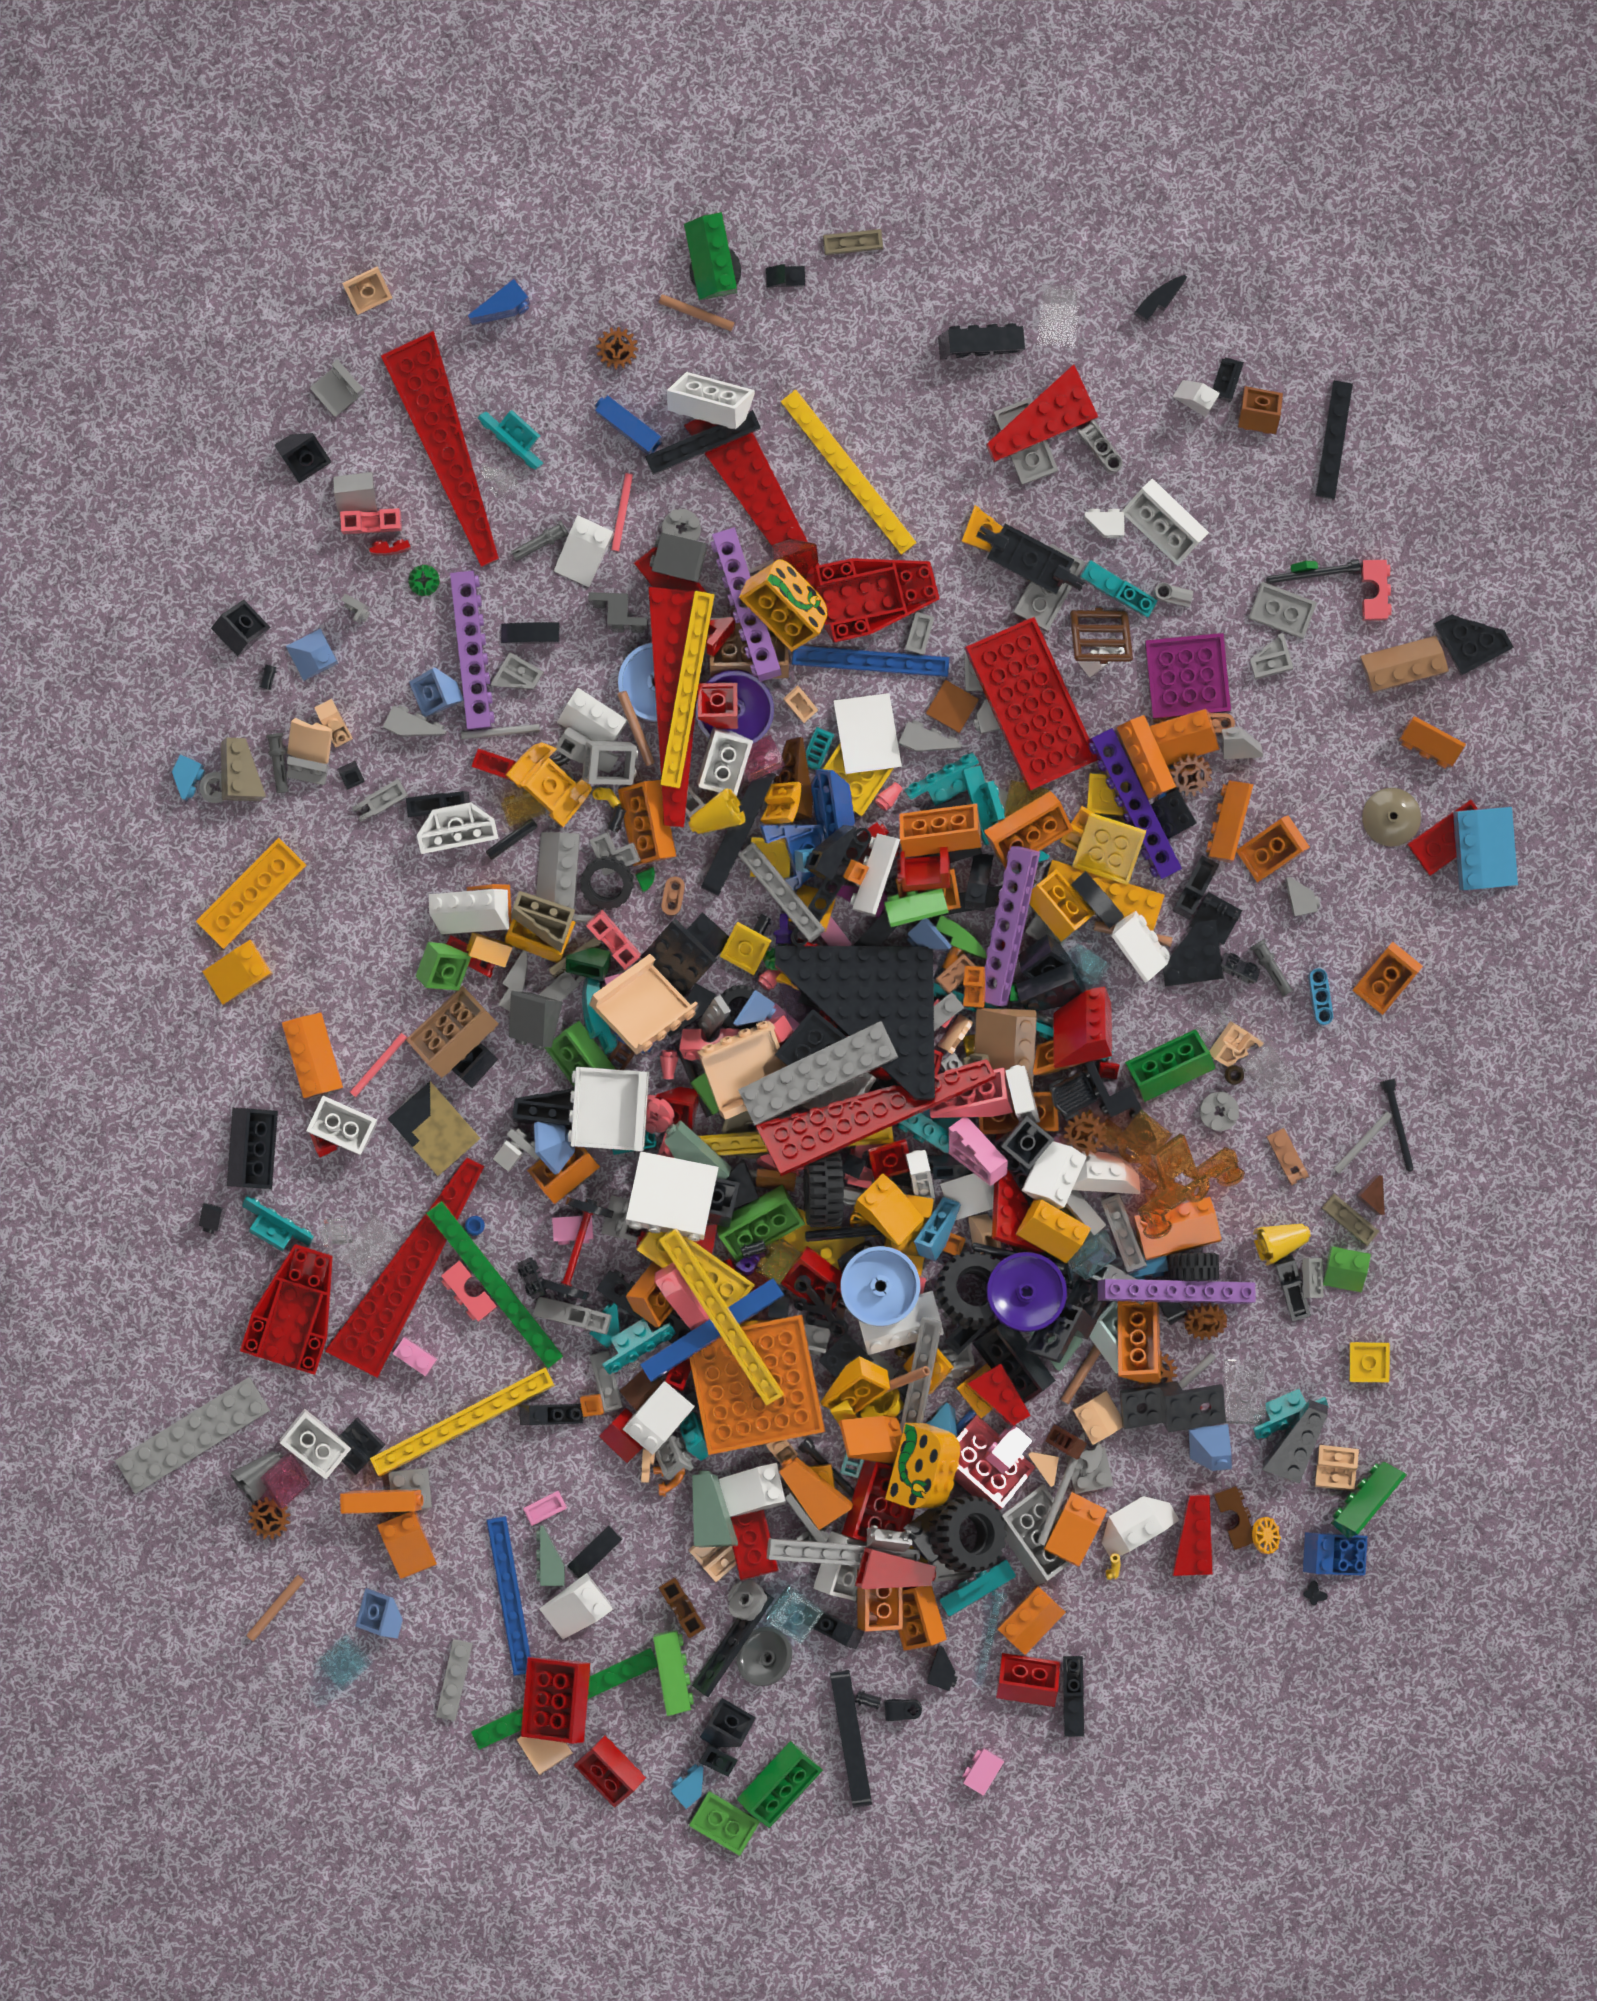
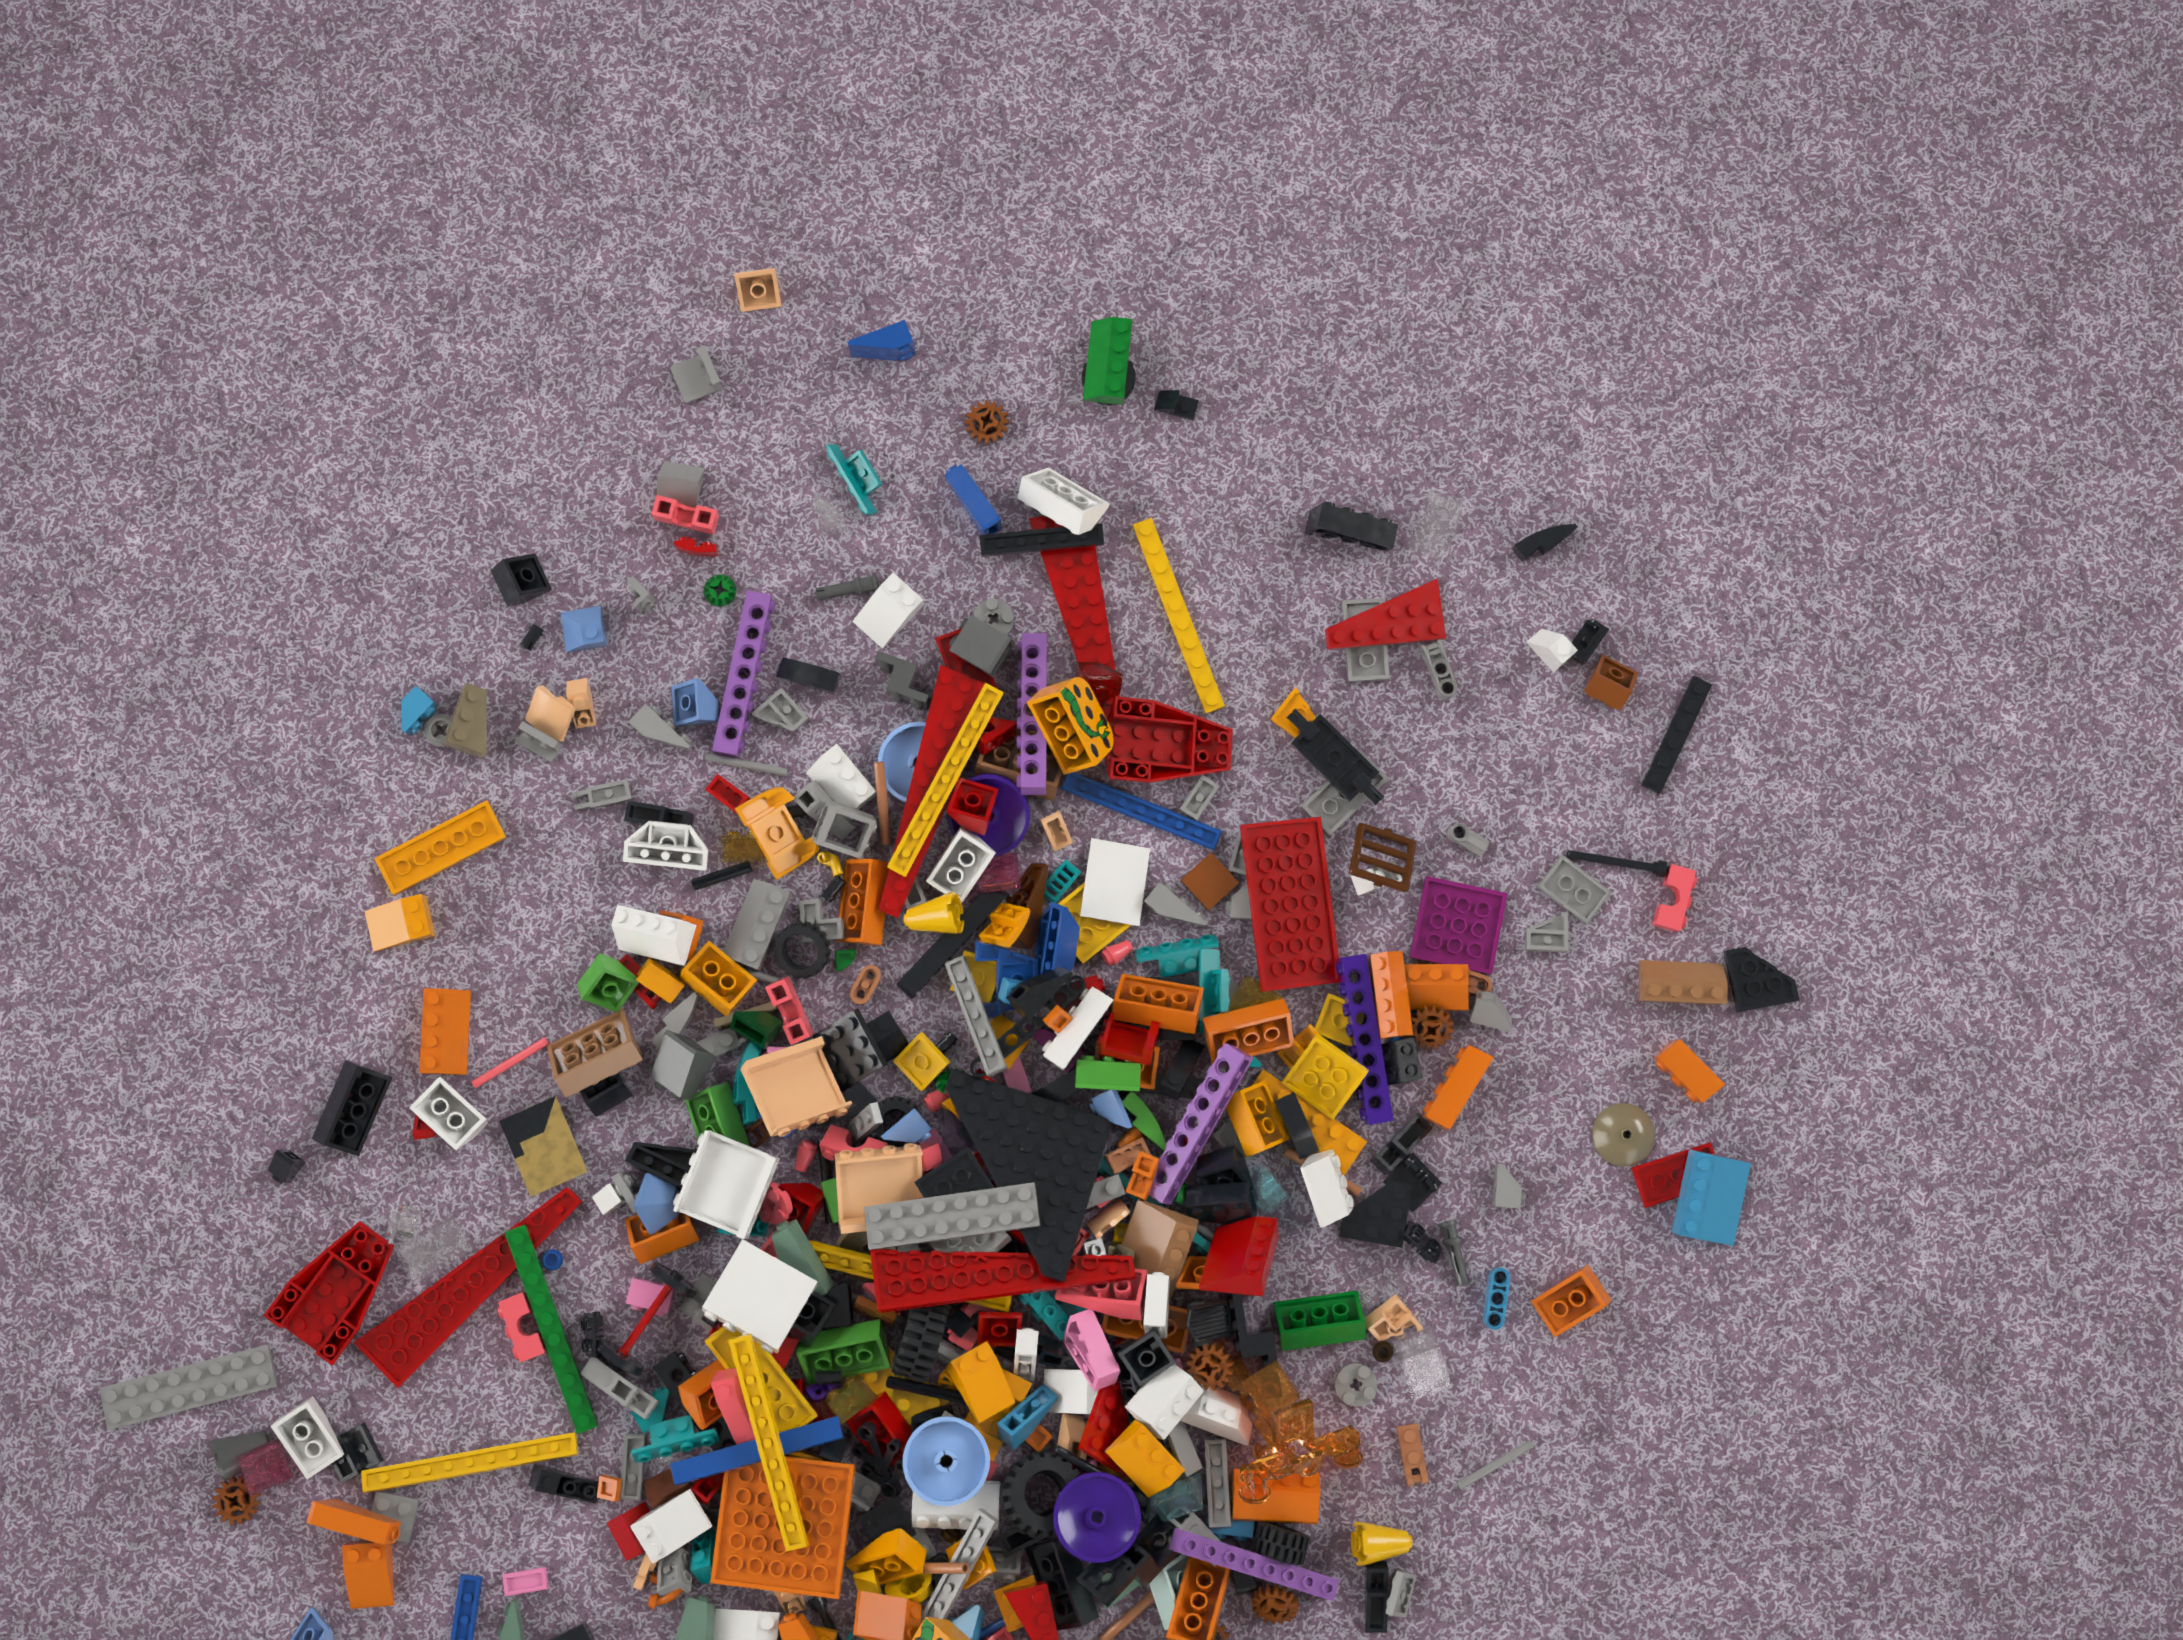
camera: 15 degrees right, 5 degrees down
(274, 1228) = (345, 1198): teal bracket -> none
(275, 1608) = (210, 1598): nougat piece -> none
(277, 754) = (514, 716): dark grey pin -> none
(302, 455) = (640, 430): black slope -> none
(351, 775) = (582, 760): black slope -> none
(415, 1356) = (444, 1378): bright pink brick -> none
(427, 396) = (783, 419): red wing -> none
(543, 918) = (724, 966): dark tan wedge -> none
(622, 512) = (939, 584): coral bar -> none
(696, 312) = (1076, 412): nougat piece -> none
(783, 935) = (965, 1059): dark purple piece -> none
(853, 242) = (1254, 392): dark tan tile -> none
(1107, 524) = (1421, 746): white slope -> none
(1108, 1070) = (1255, 1305): red slope -> none
(1118, 589) = (1414, 816): teal slope -> none
(1164, 522) = (1481, 763): white slope -> none
(1272, 848) = (1492, 1129): orange slope -> none
(1304, 565) = (1609, 851): green tile -> none
(1346, 1269) = (1439, 1594): bright green slope -> none
(1350, 1219) = (1458, 1542): dark tan tile -> none
(1373, 1195) = (1491, 1525): copper slope -> none
(1389, 1088) = (1539, 1416): black piece -> none

